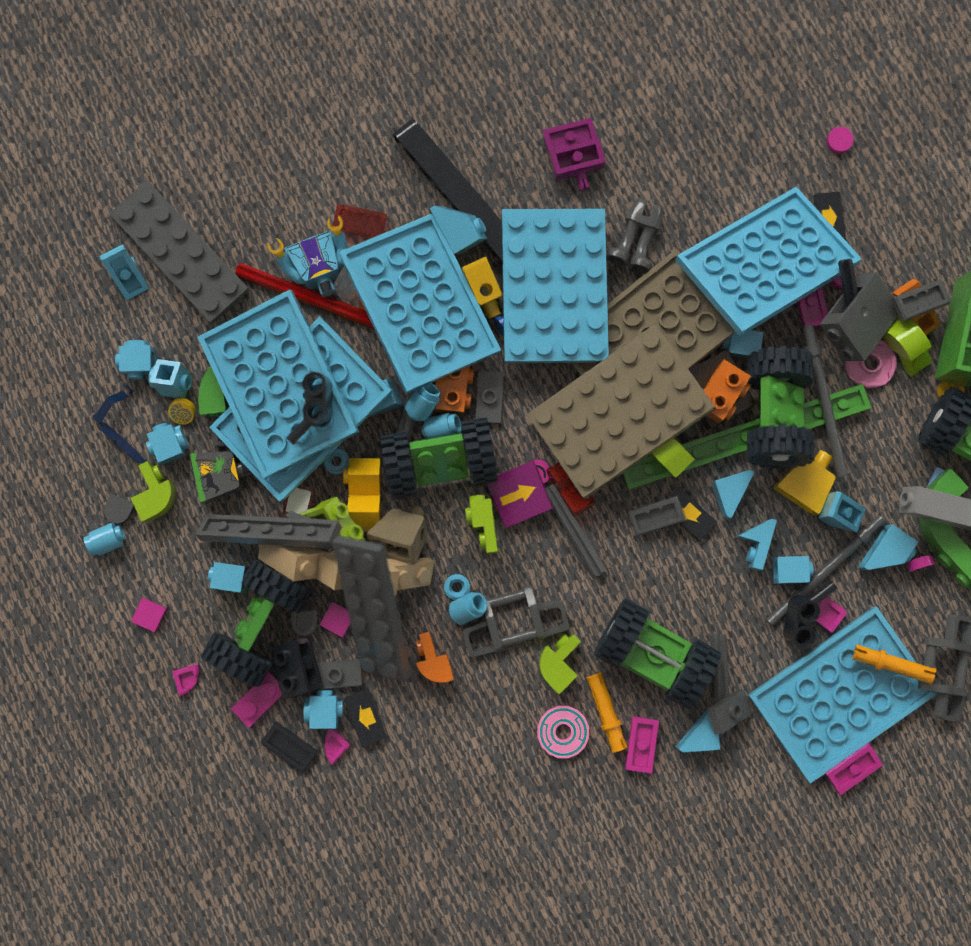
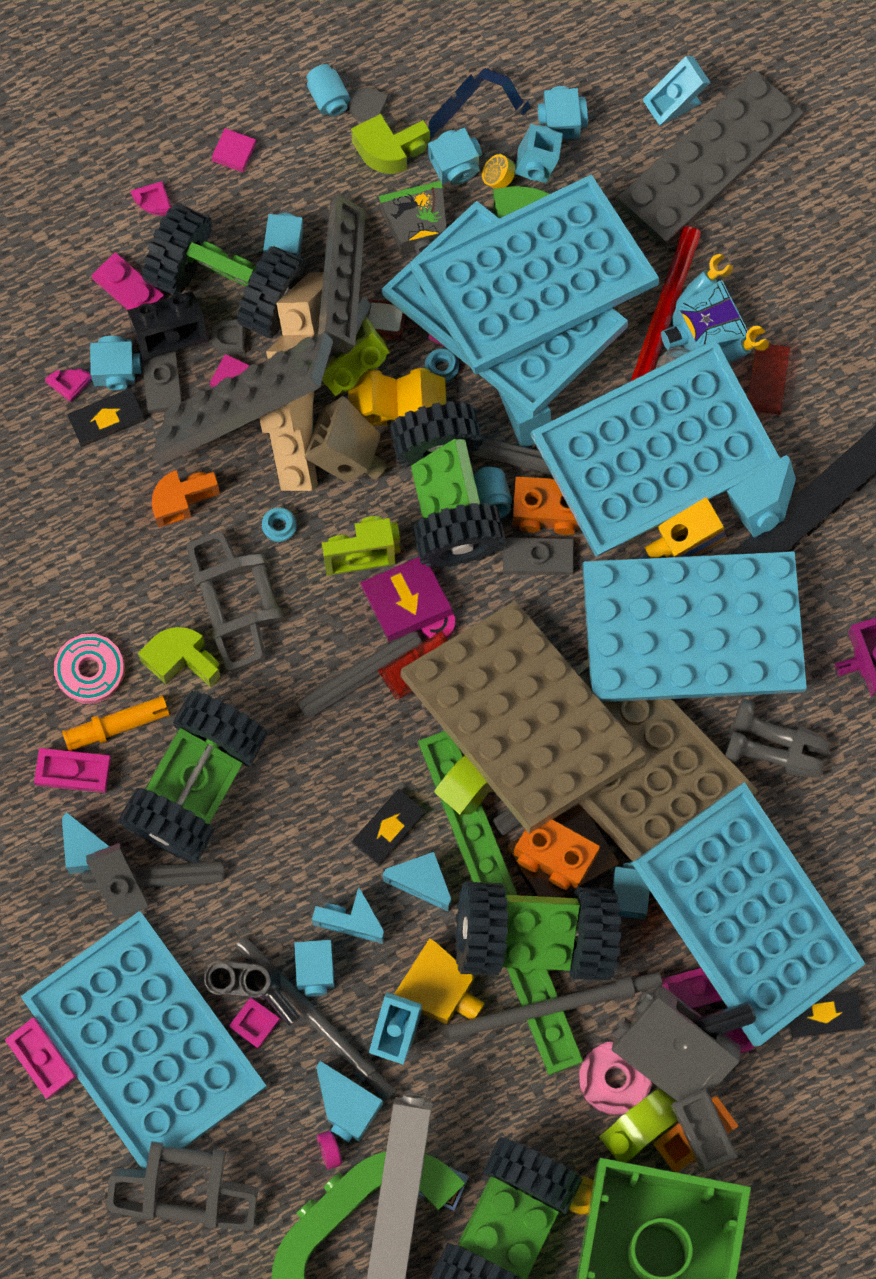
camera: 95 degrees right, 10 degrees down
(289, 747) = (67, 327): black tile -> none
(312, 399) = (513, 317): black beam -> none
(423, 402) = (522, 461): medium azure brick -> none
(467, 608) = (250, 534): medium azure brick -> none
(657, 515) = (384, 781): dark grey plate -> none
(891, 663) = (189, 1086): light orange pin -> none

